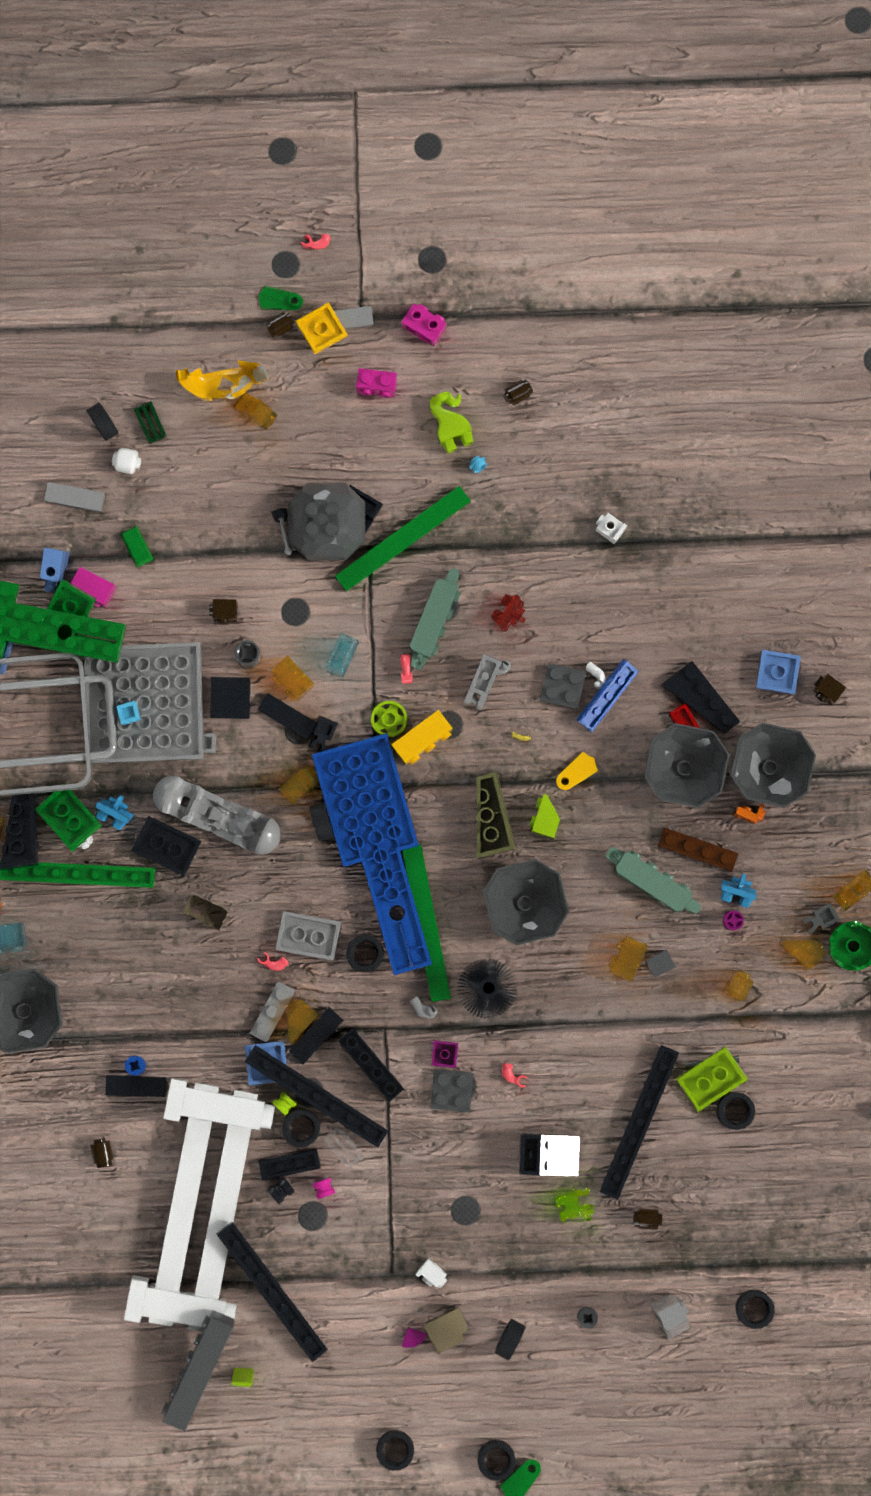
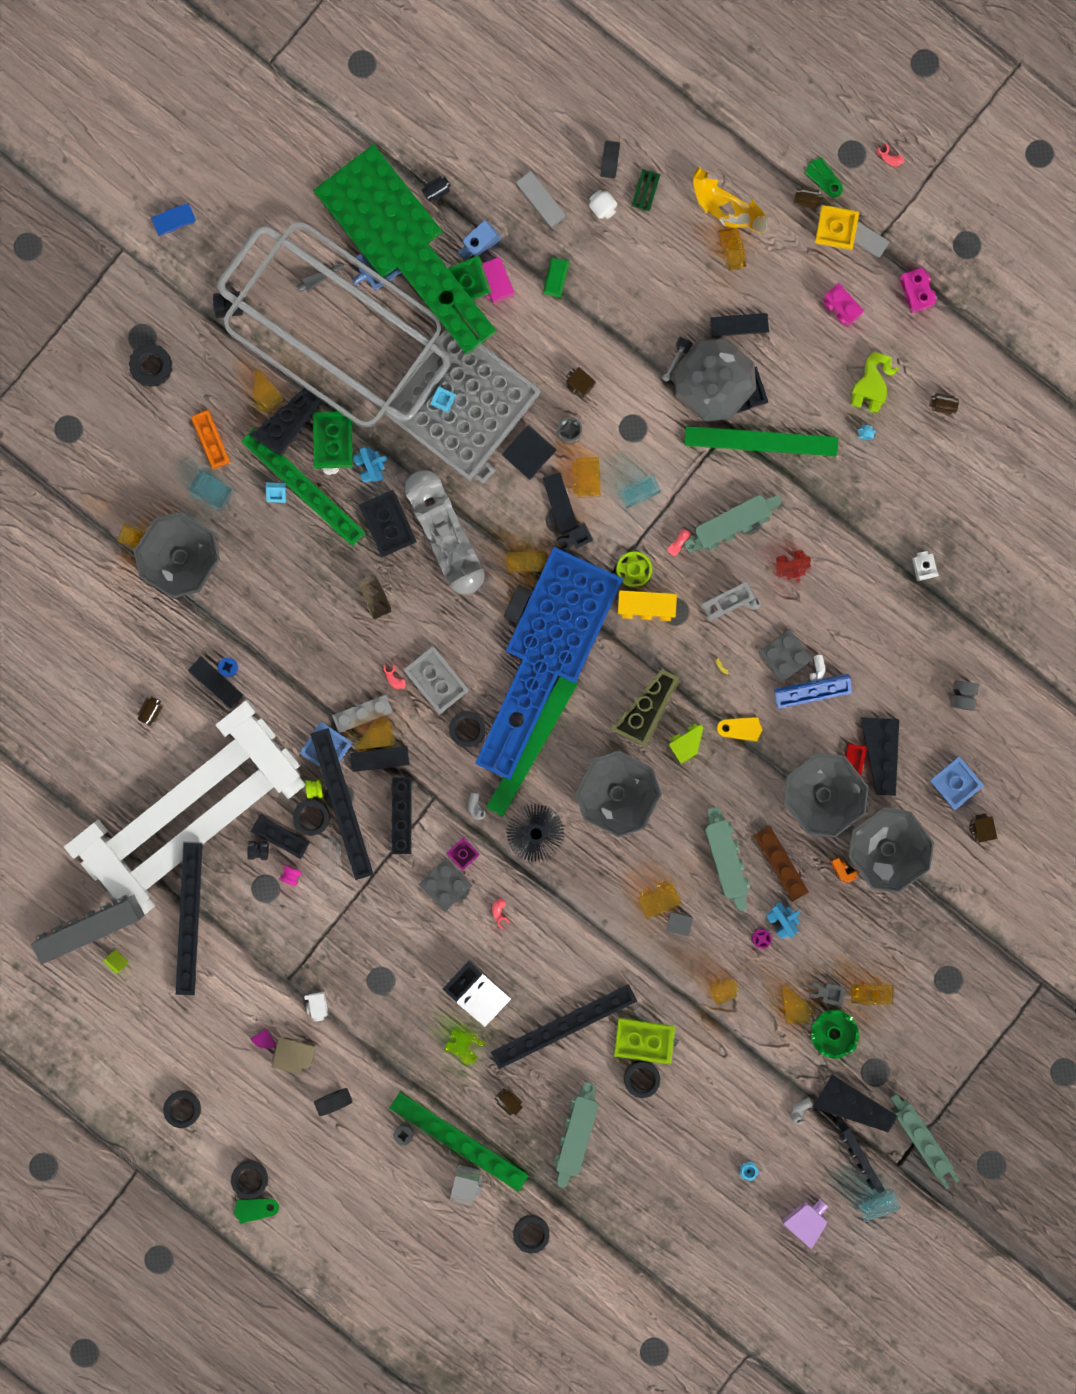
camera: 40 degrees right, 5 degrees up
(58, 896) = (276, 492): none -> medium azure plate
(310, 464) = (739, 325): none -> black tile
(635, 1285) = (459, 1141): none -> green plate
(723, 1198) = (577, 1134): none -> sand green hinge
(726, 600) = (964, 695): none -> dark grey wheel

